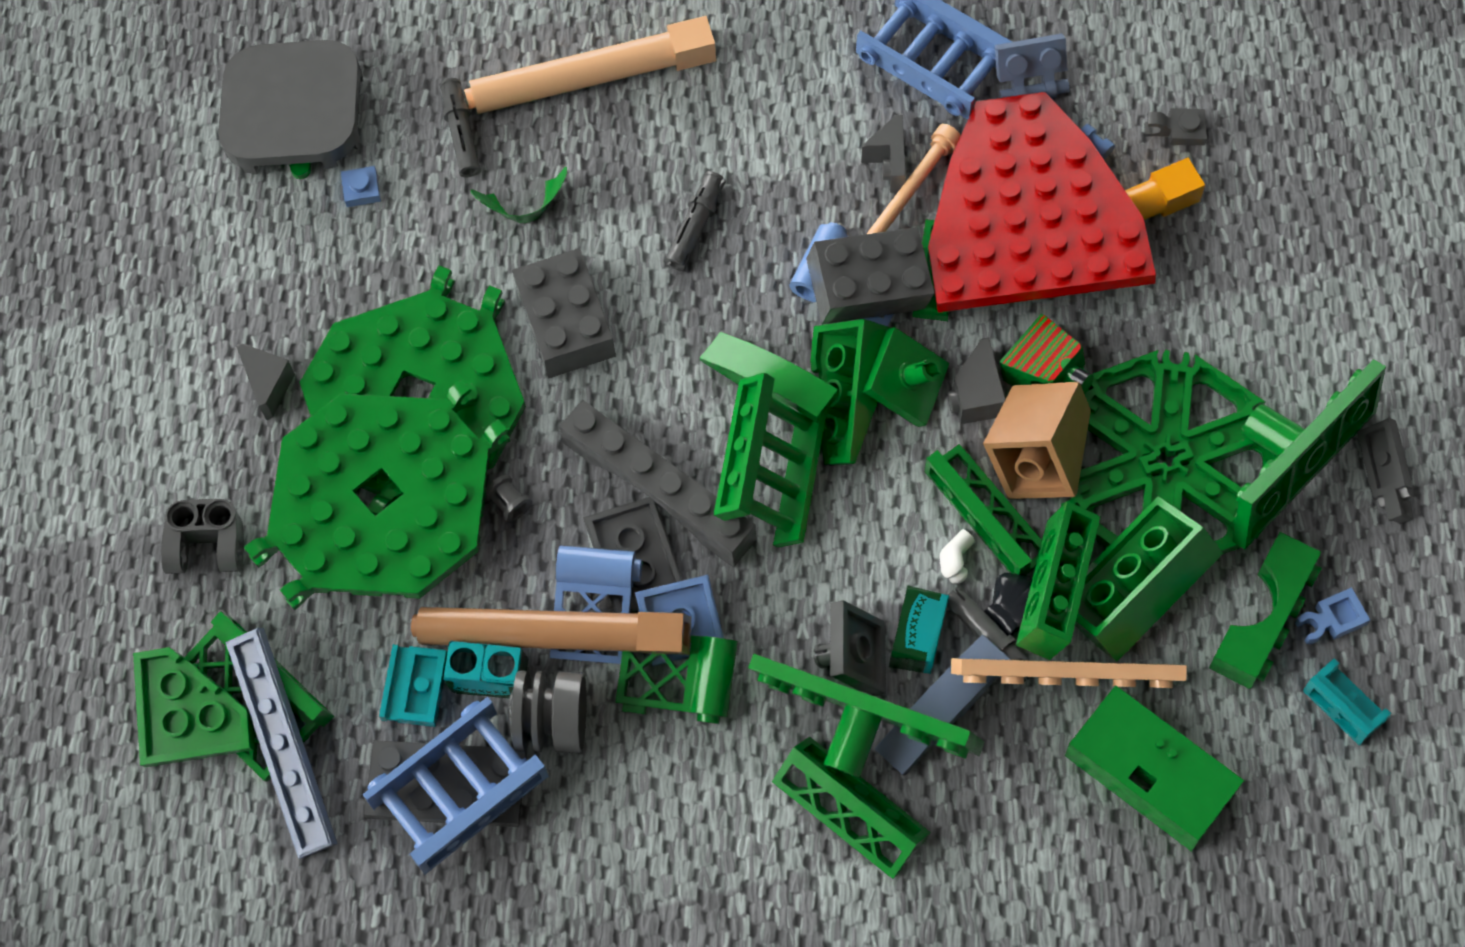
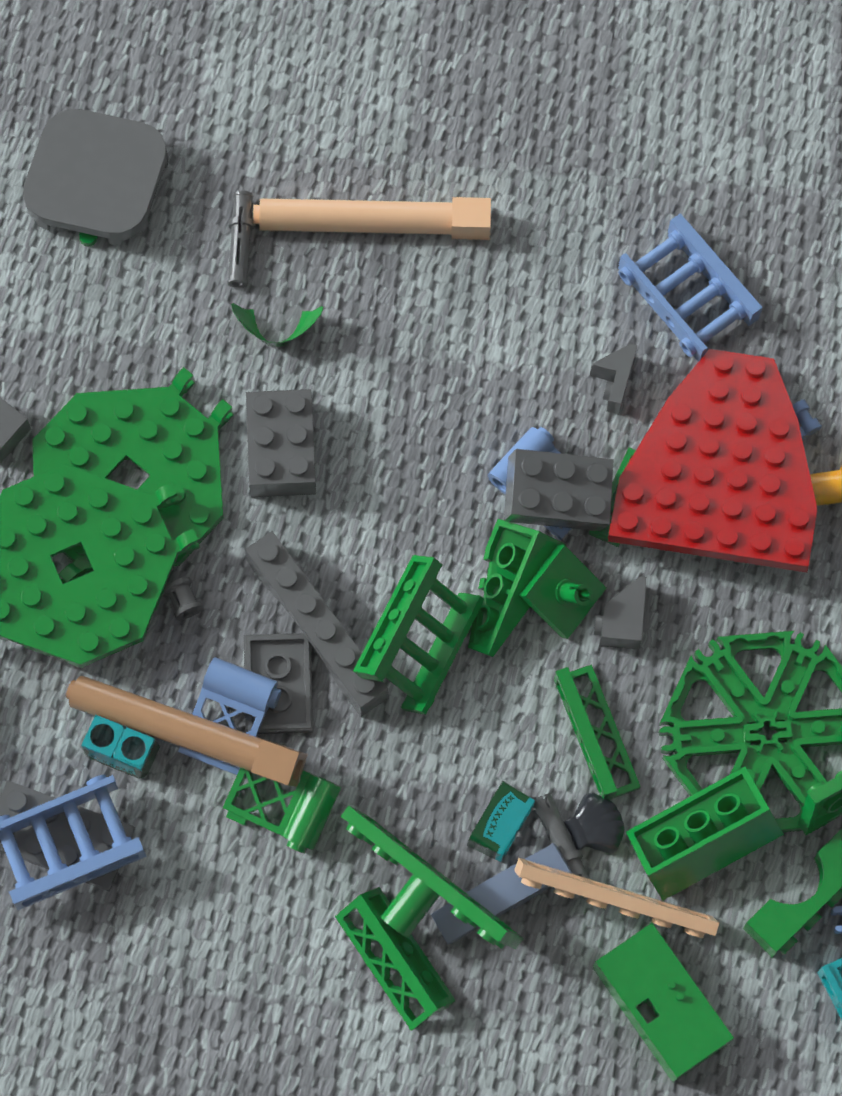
camera: 10 degrees right, 5 degrees up
(360, 186) = (136, 269): medium blue plate -> none
(413, 685) = (55, 742): teal plate -> none
(549, 711) = (155, 799): dark grey wheel -> none
(689, 597) = (307, 736): medium blue tile -> none
(700, 209) = (431, 379): dark grey pin -> none
(792, 384) = (433, 540): green slope -> none
(855, 649) = (440, 823): dark grey tile -> none
(943, 143) = (668, 379): light nougat piece -> none
(952, 559) = (552, 764): white arm -> none
(1030, 59) = (770, 324): sand blue plate -> none
(1040, 440) = (660, 684): medium nougat slope -> none
(1044, 357) = (691, 613): green torso -> none
(1058, 581) = (633, 816): green brick -> none

